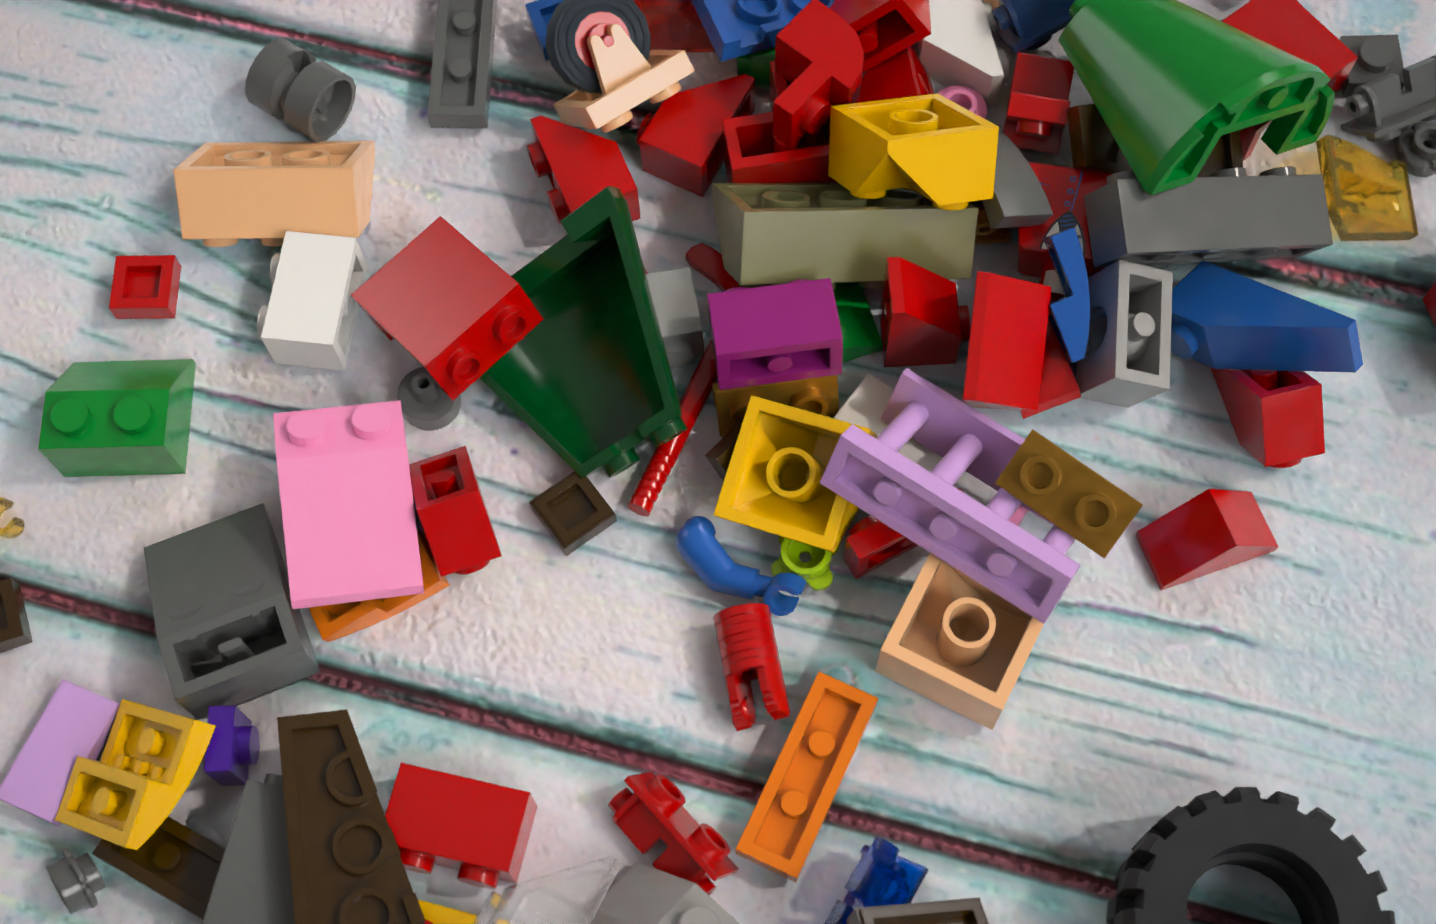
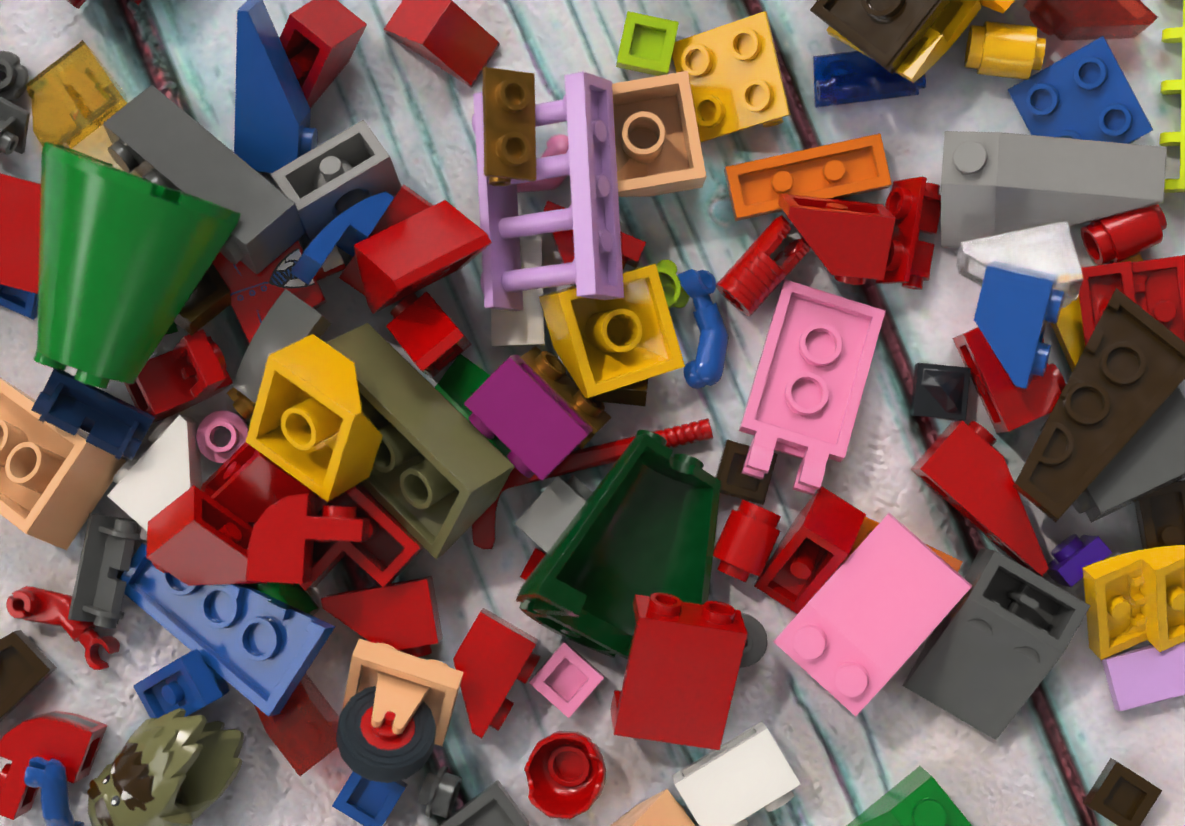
camera: 130 degrees left, 20 degrees up
(391, 702) = (980, 487): none -> red slope
(442, 170) = (565, 774): none -> red hair
(495, 746) = (940, 391): none -> black tile
(504, 837) = (1014, 316): none -> blue slope
(509, 460) = (747, 541): none -> red brick
(515, 75) = (440, 793): none -> dark grey plate
(520, 230) = (566, 679): none -> bright pink plate
(608, 625) = (809, 381): none -> bright pink tile
(727, 750) = (844, 234): none -> red slope
(965, 776) = (733, 77): none -> yellow hinge
(1060, 719) = (647, 44): none -> lime plate

